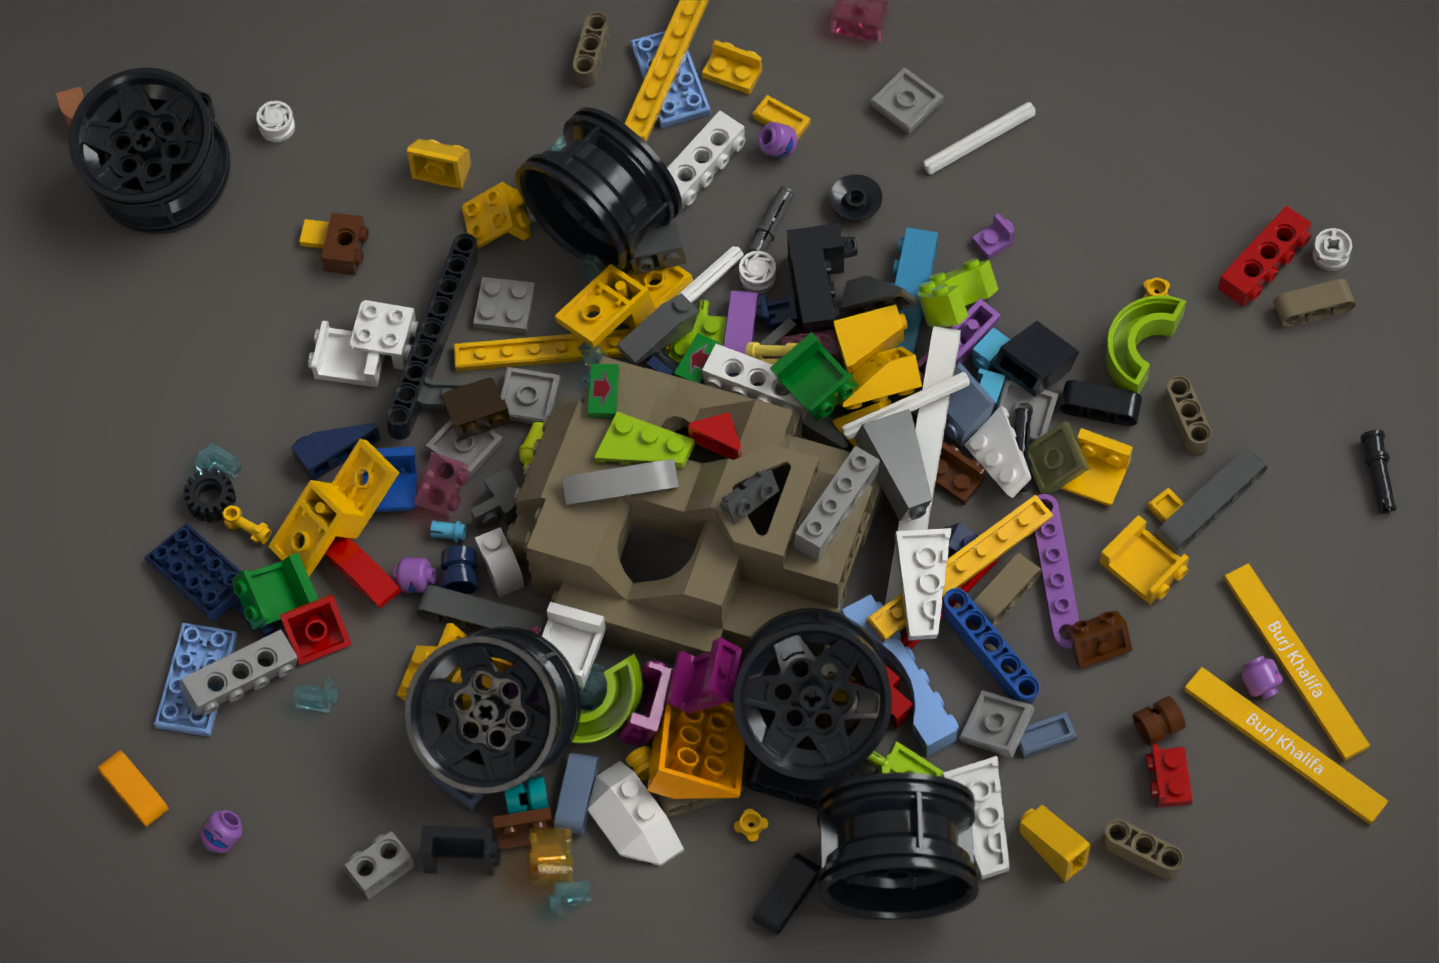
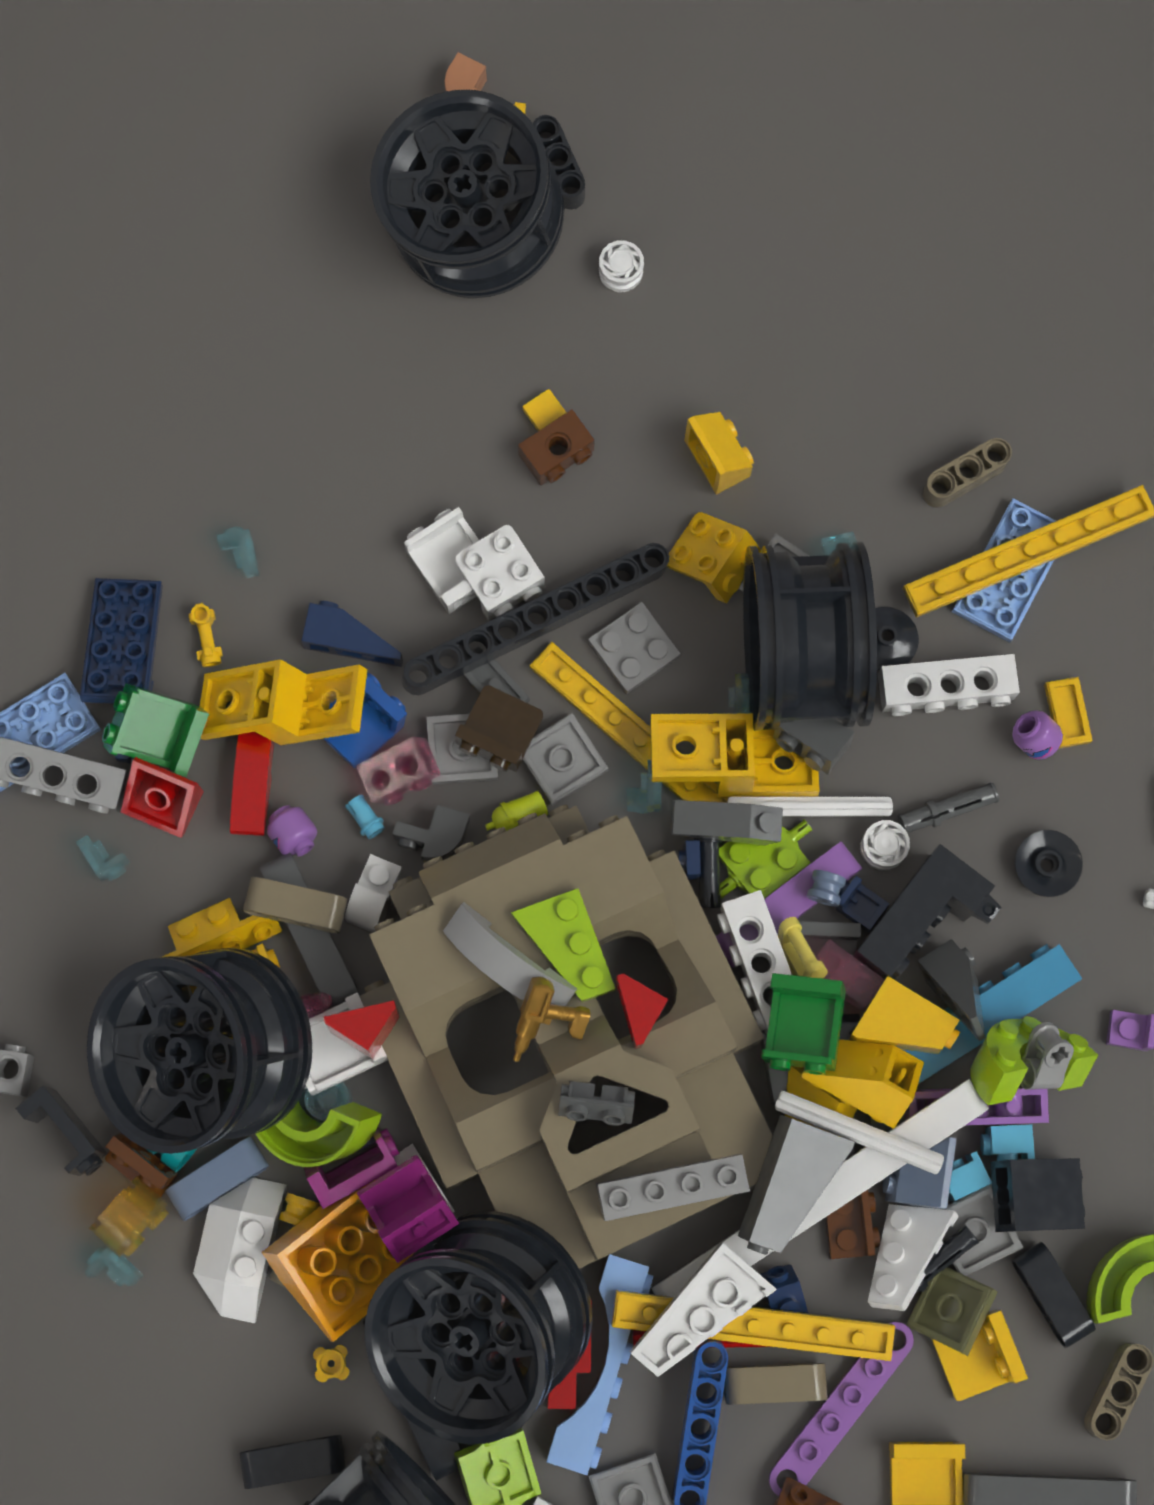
camera: 40 degrees right, 15 degrees up
(204, 482) = (195, 558): black tyre -> none
(459, 569) = (333, 865): dark blue wheel -> none
(461, 602) = (295, 905): none -> dark tan beam
(574, 605) = (364, 1027): none -> red slope
(603, 390) = (589, 853): green tile -> none
(664, 485) = (538, 1010): none -> pearl gold piece
(695, 359) = (734, 882): green tile -> none
(733, 67) = (1076, 618): yellow bracket -> none
(750, 313) = (826, 888): none -> sand blue wheel
(964, 276) = (1046, 1058): none -> light grey piece
(1165, 504) = (1006, 1454): yellow tile -> none

